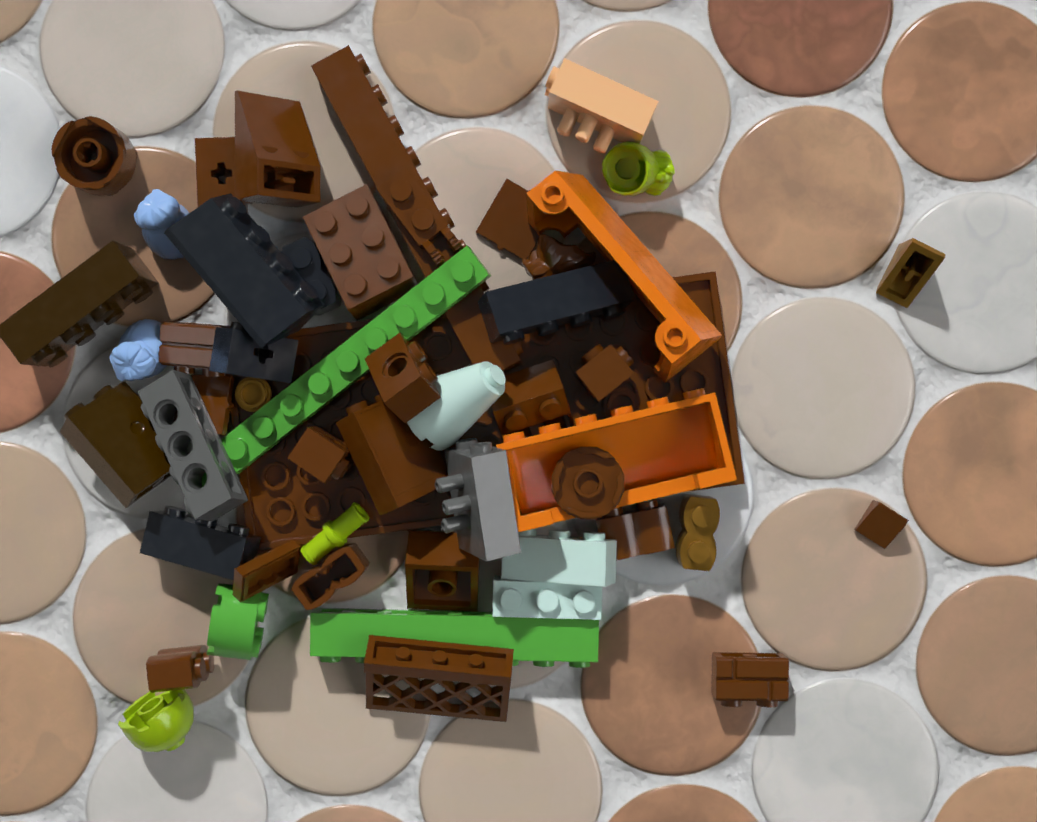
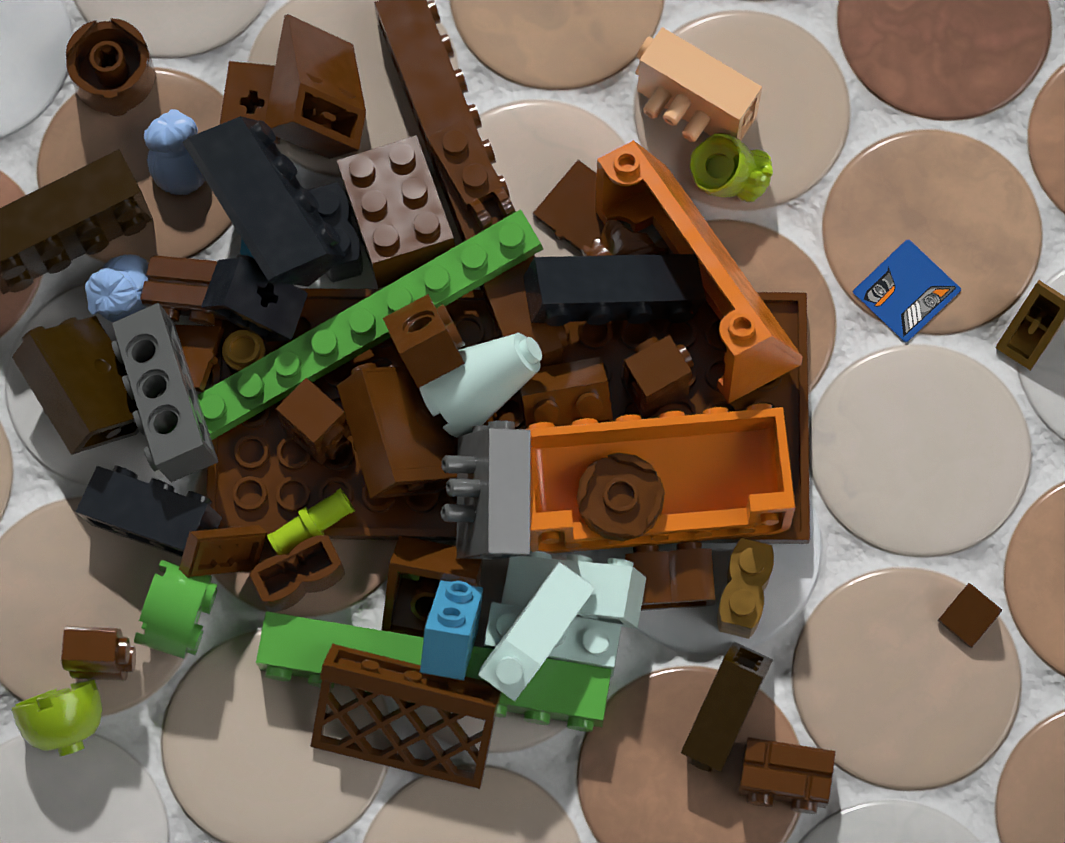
camera: 10 degrees right, 15 degrees down
(464, 614) = (451, 629): none -> dark azure brick
(533, 610) = (536, 631): none -> light aqua slope
(696, 630) = (726, 707): none -> dark brown slope
(796, 252) = (907, 290): none -> blue sticker

